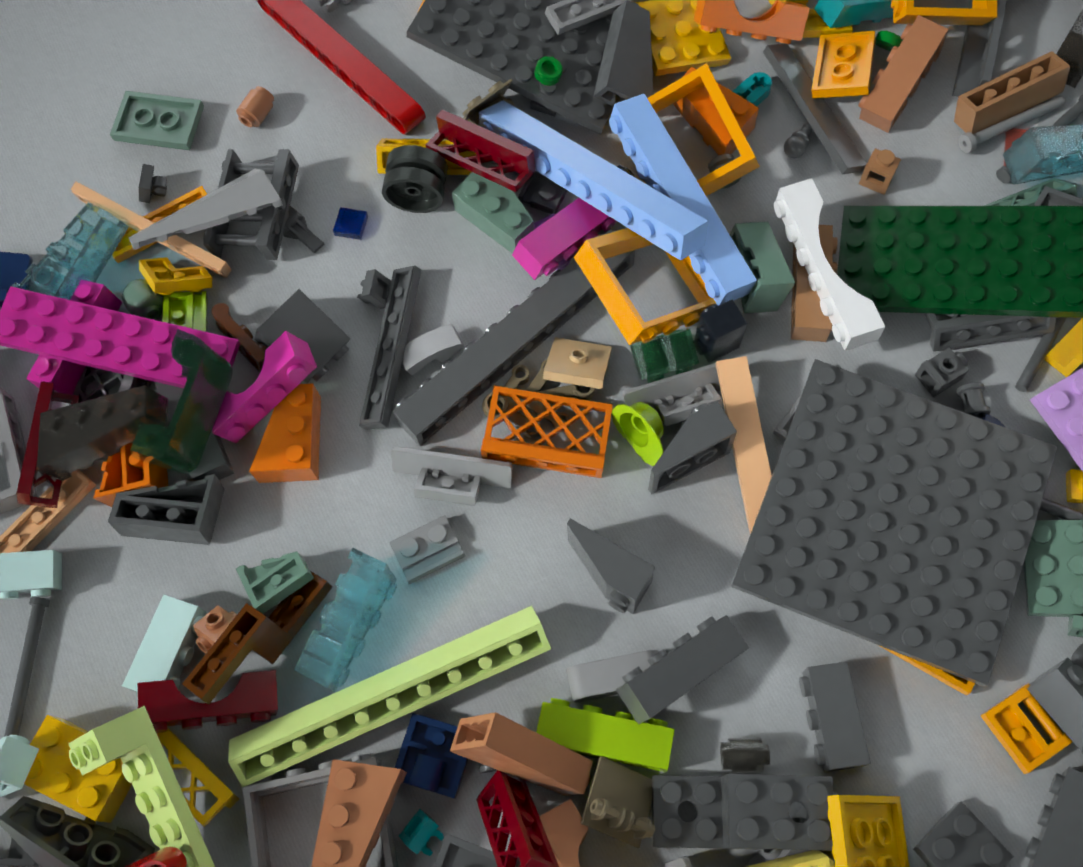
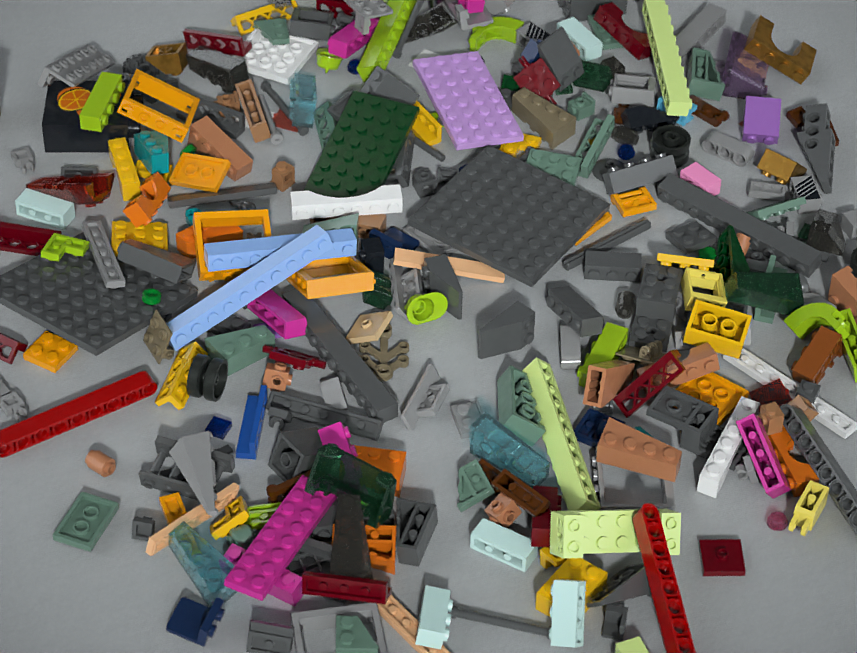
camera: 85 degrees left, 25 degrees down
(355, 262) = (252, 425): none -> blue fence
(444, 265) = (277, 376): none -> nougat brick
(446, 613) = (517, 406): none -> sand green wedge
(486, 277) = (297, 359): none -> dark red plate
(487, 146) = (200, 334): dark red fence -> none
(548, 456) = (424, 353): orange fence -> none
(780, 357) = (394, 238): none -> dark blue bracket
(899, 700) = (608, 243): none -> dark grey axle
(1014, 55) = (228, 100): none -> medium nougat brick

